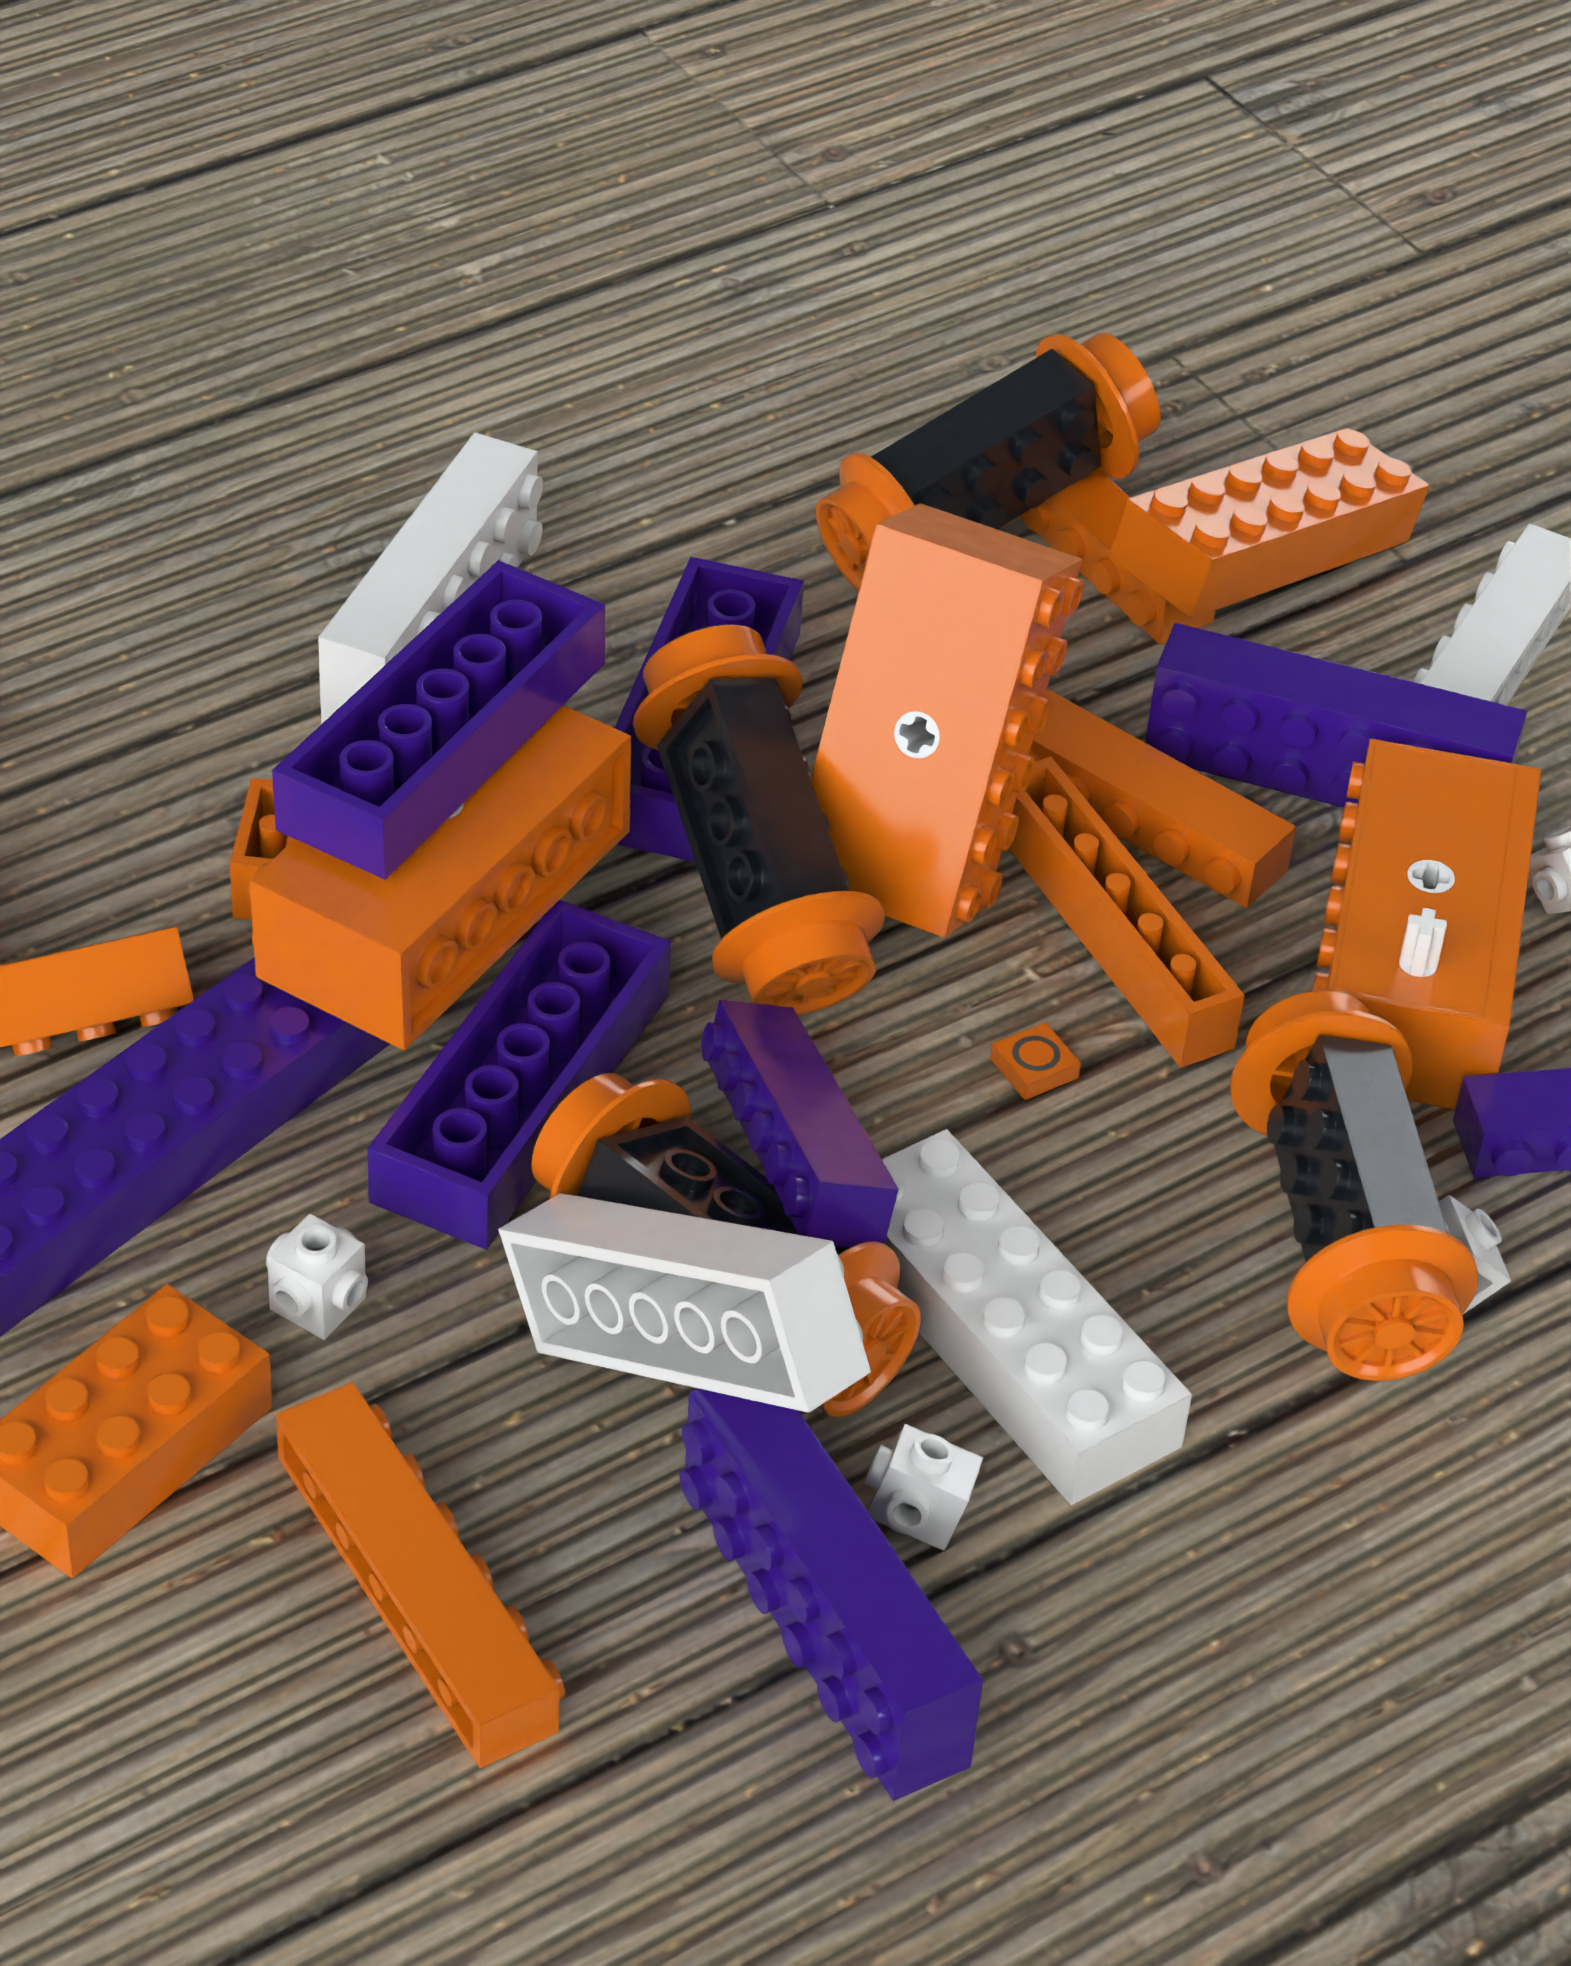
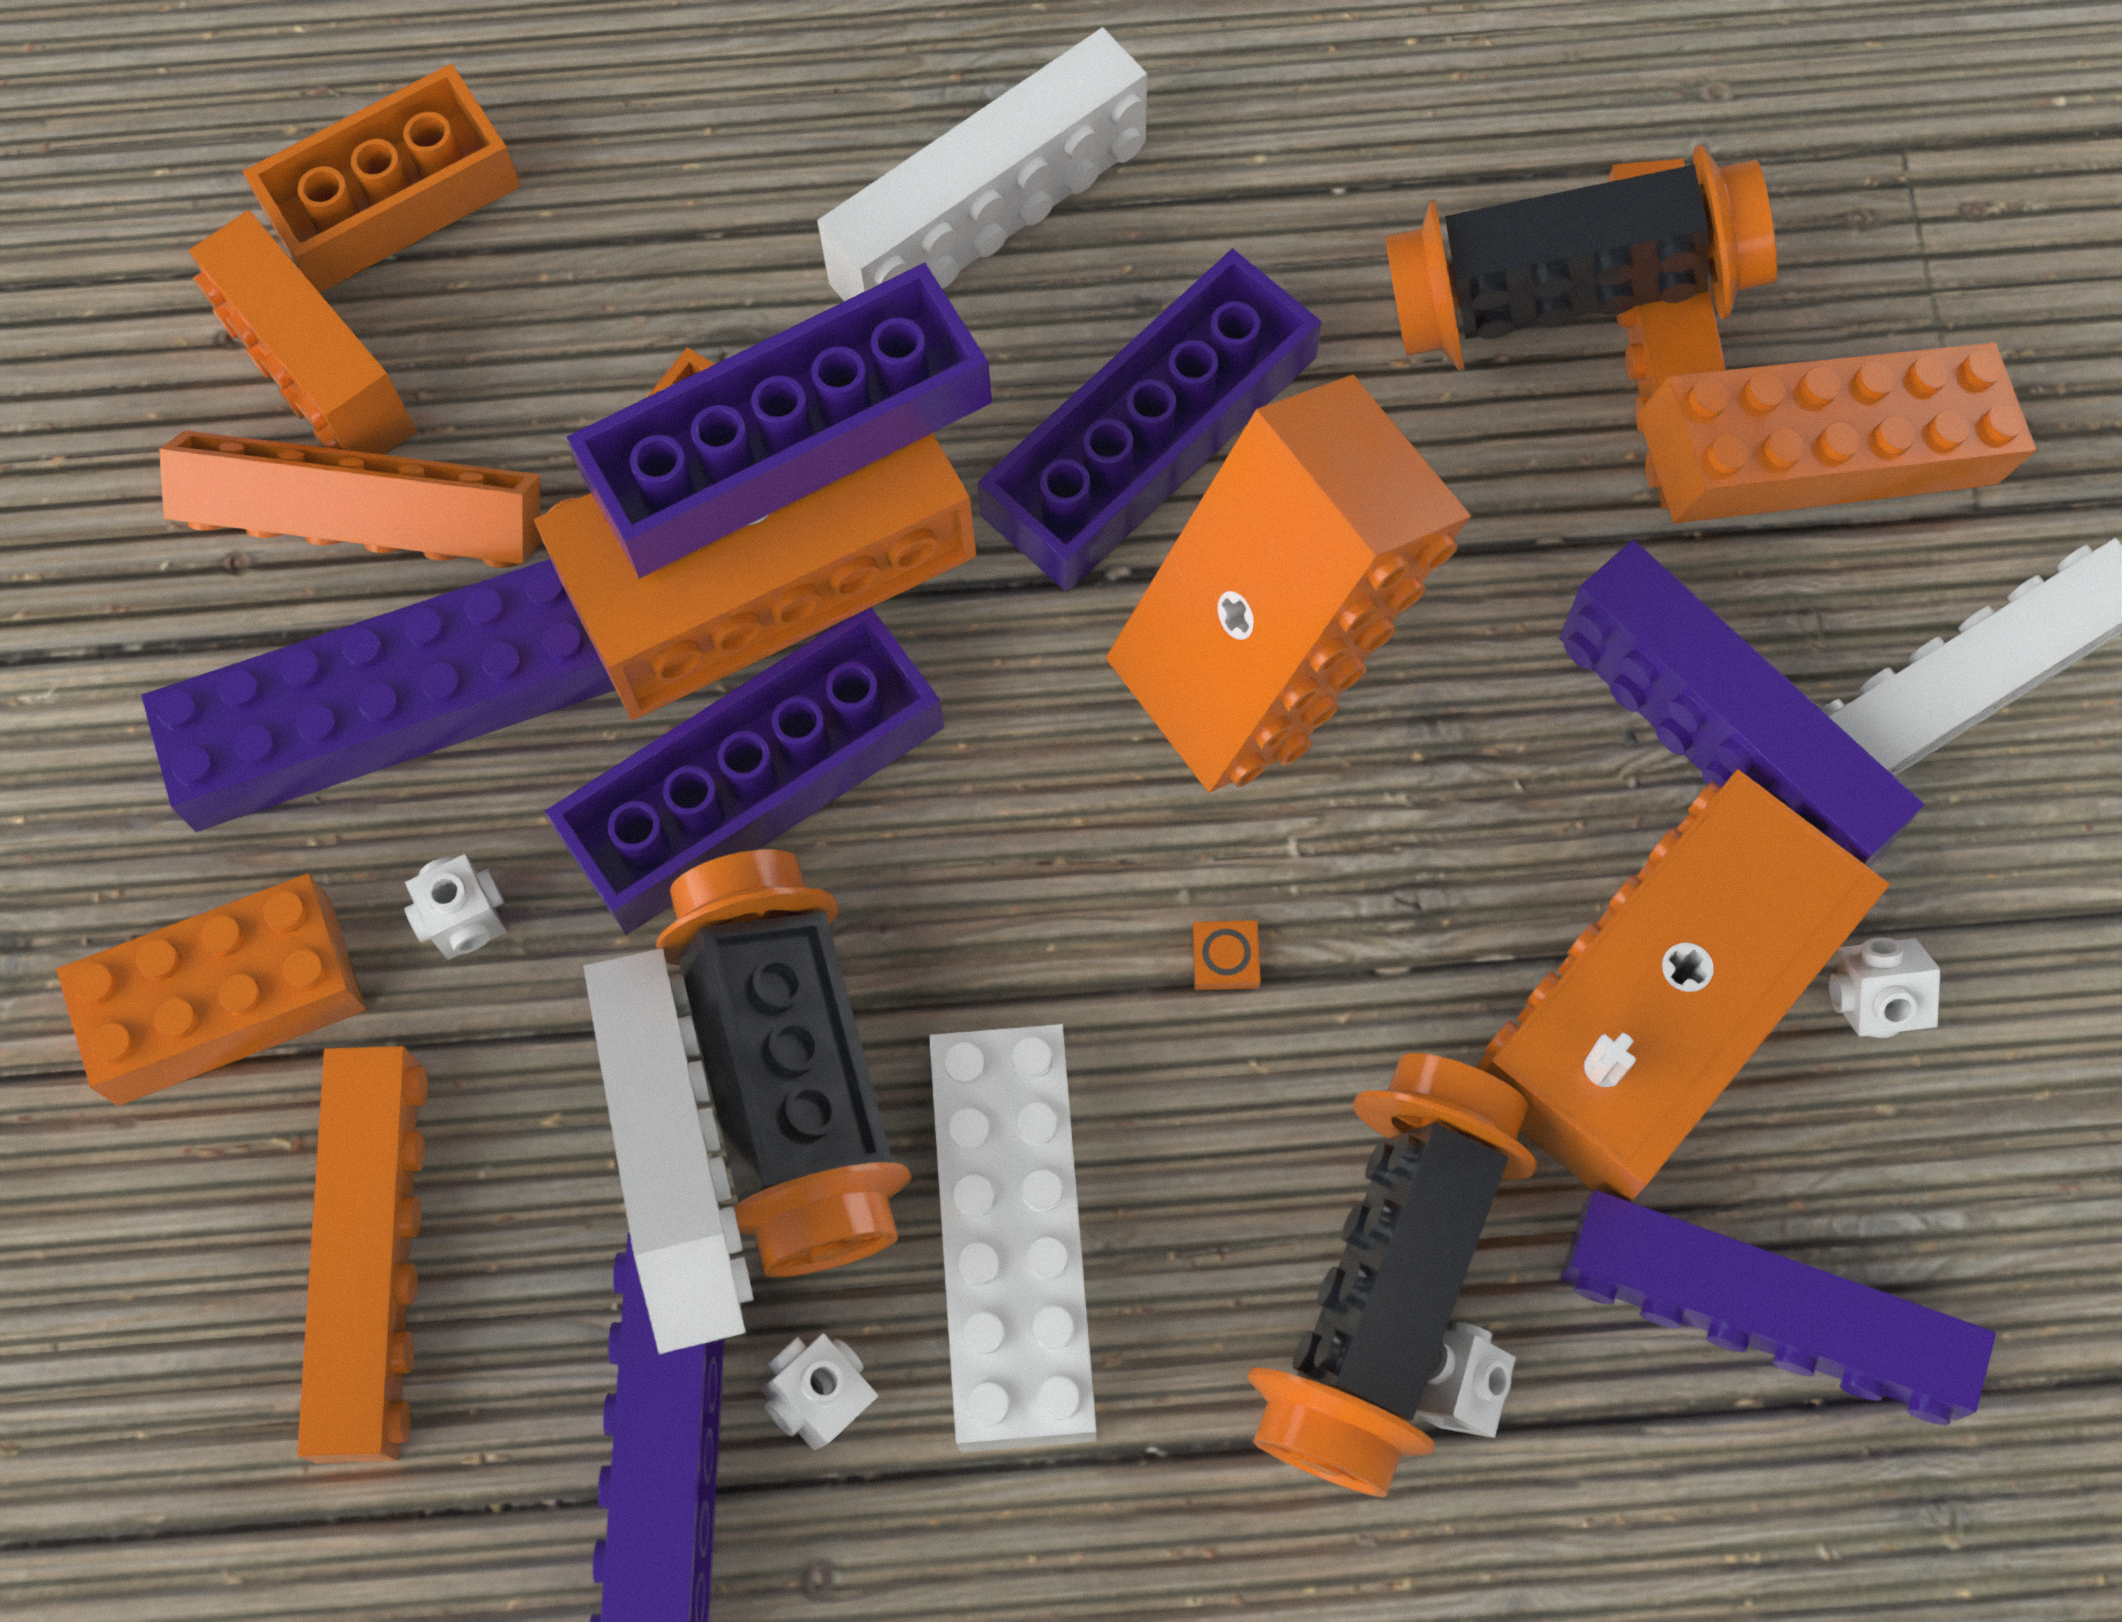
camera: 35 degrees right, 25 degrees up
(755, 820) = (1079, 602): brick -> none
(799, 1124) = (917, 972): dark purple brick -> none
(1124, 919) = (1392, 837): orange brick -> none
(1167, 805) = (1515, 702): orange brick -> none

